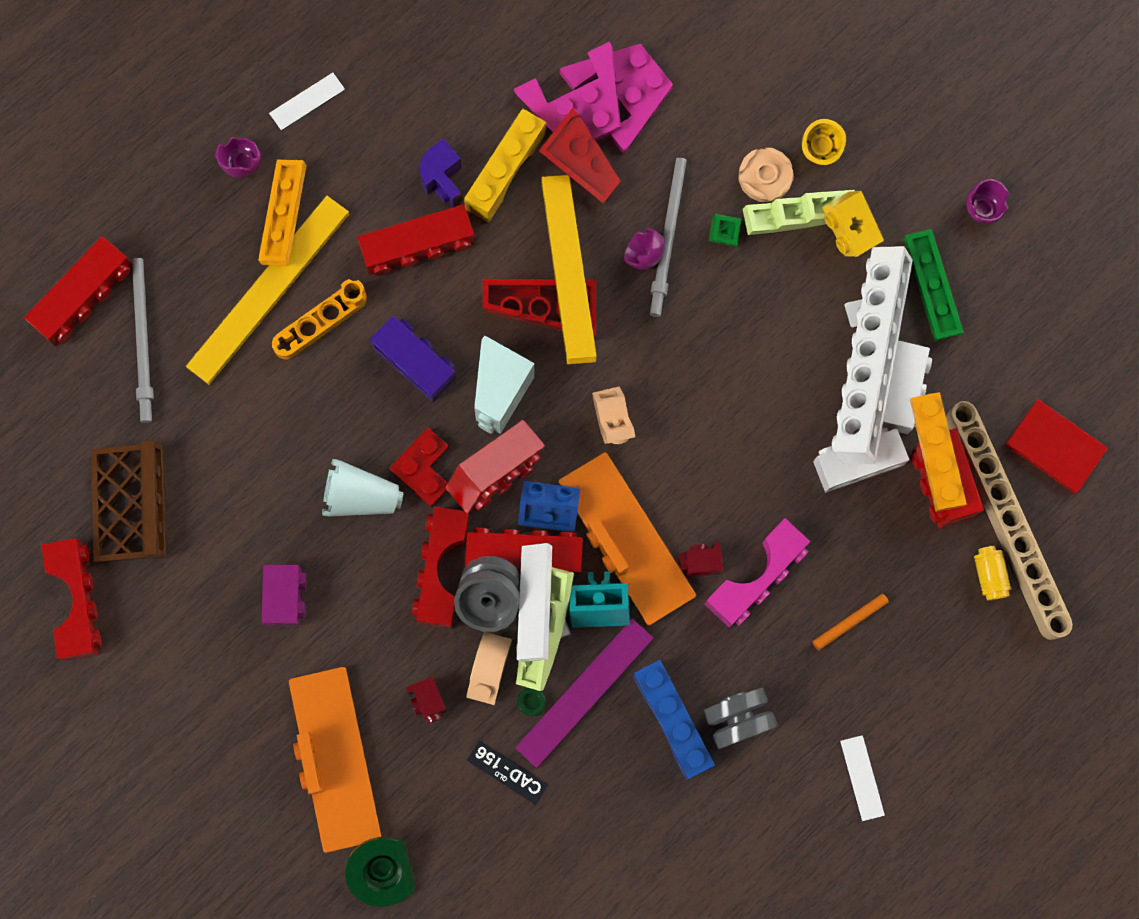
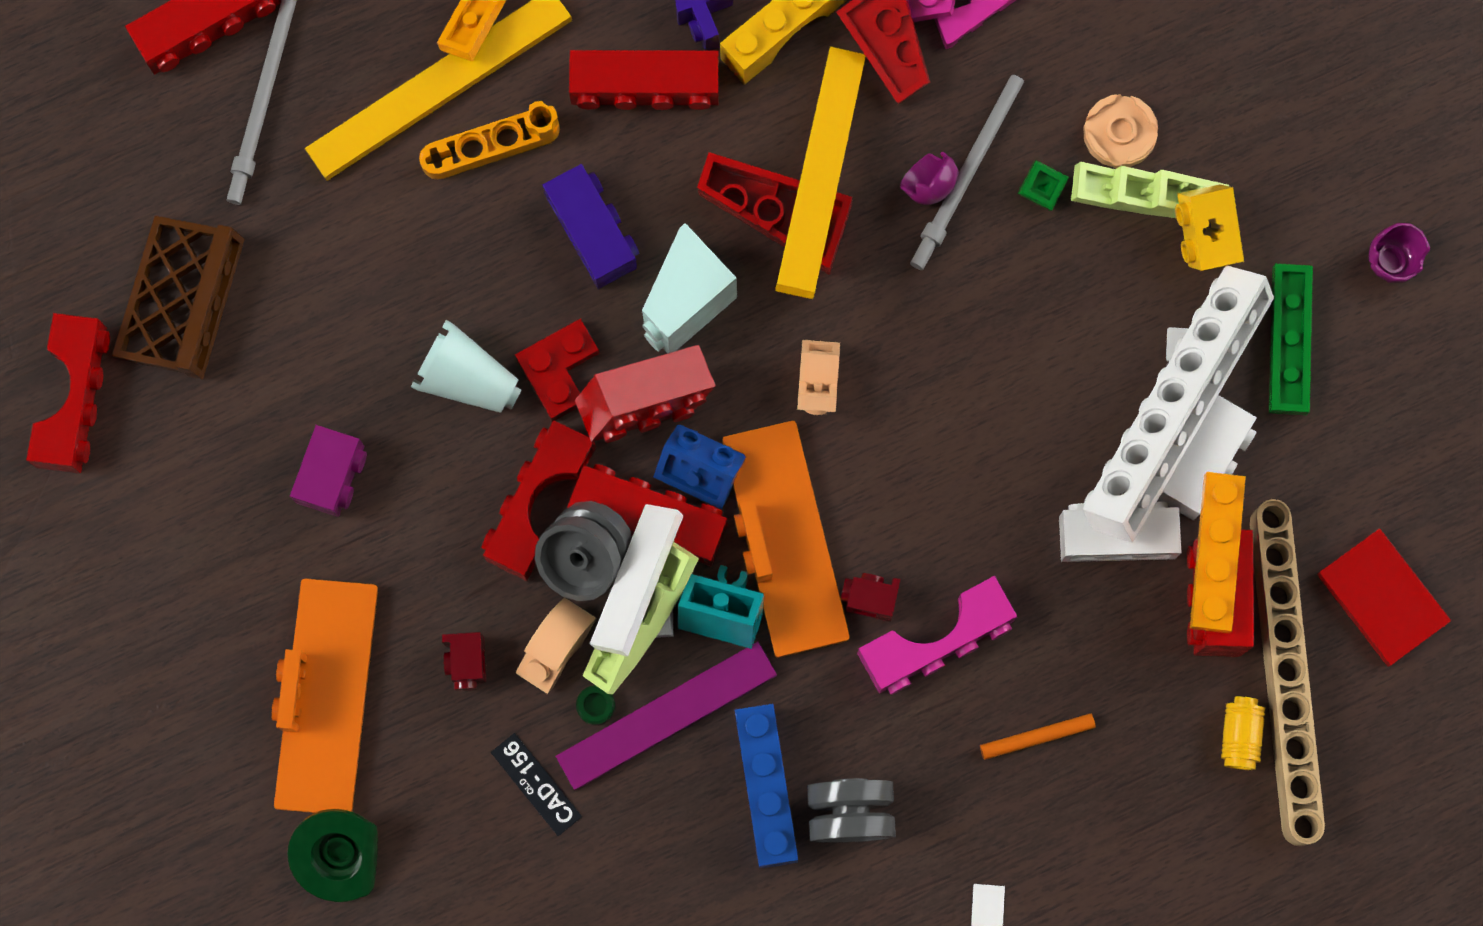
camera: 25 degrees right, 0 degrees up
(821, 145) = (1205, 114): yellow helmet -> none

